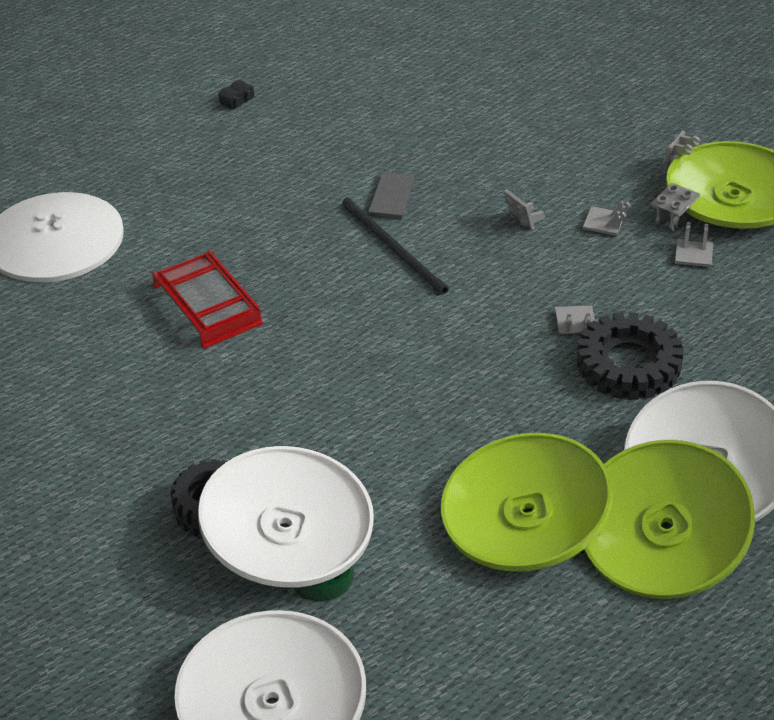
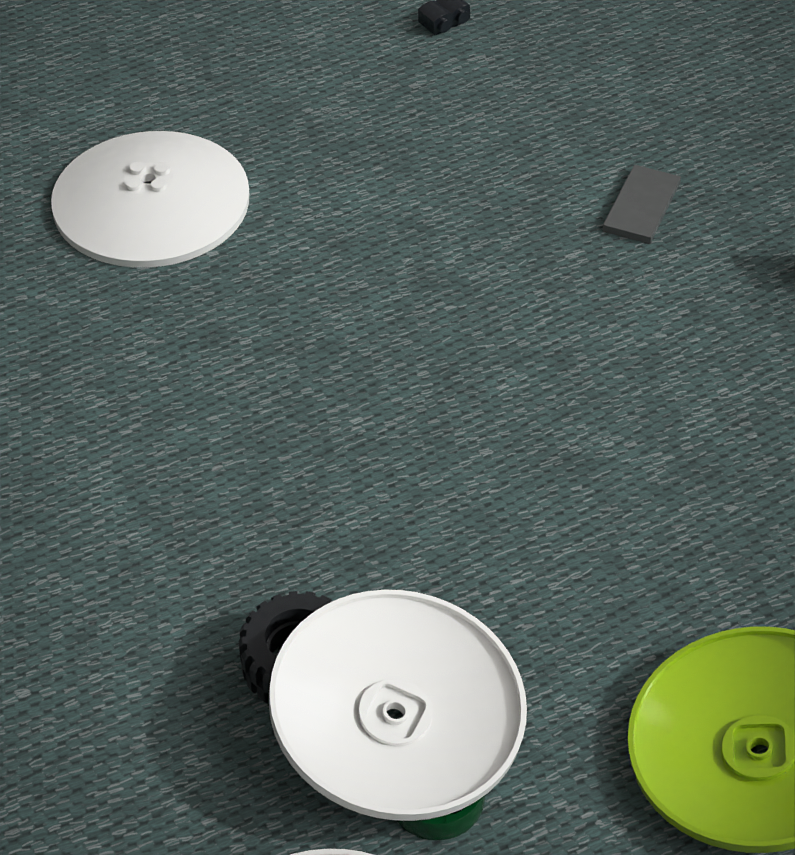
camera: 10 degrees right, 5 degrees up
(209, 298) = (350, 329): piece -> none
(435, 282) = (682, 352): black piece -> none

